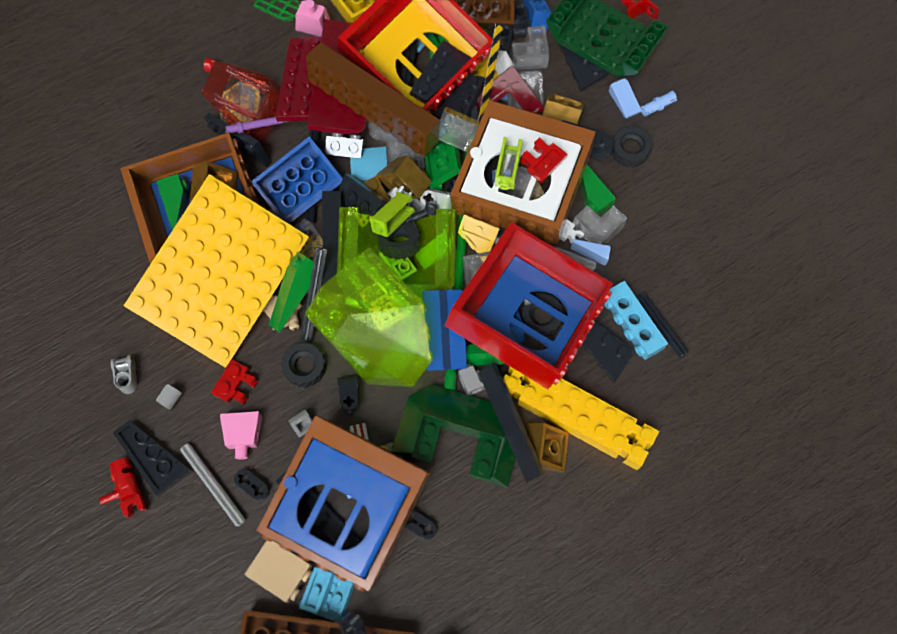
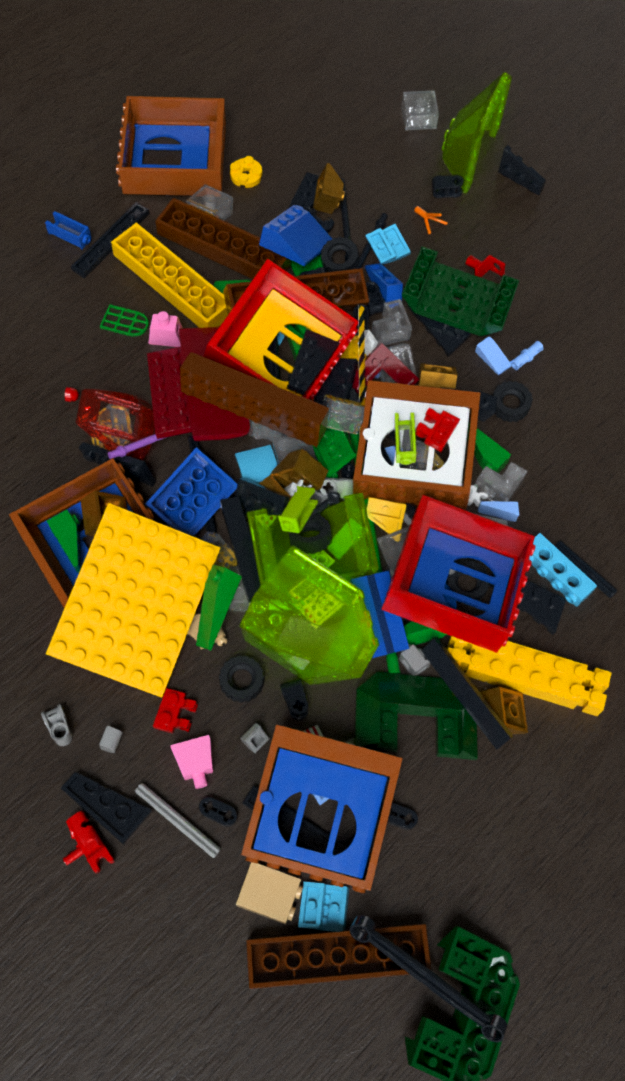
camera: 15 degrees left, 5 degrees down
(315, 285) = (238, 603): black axle -> none
(345, 147) = (229, 451): bracket -> none

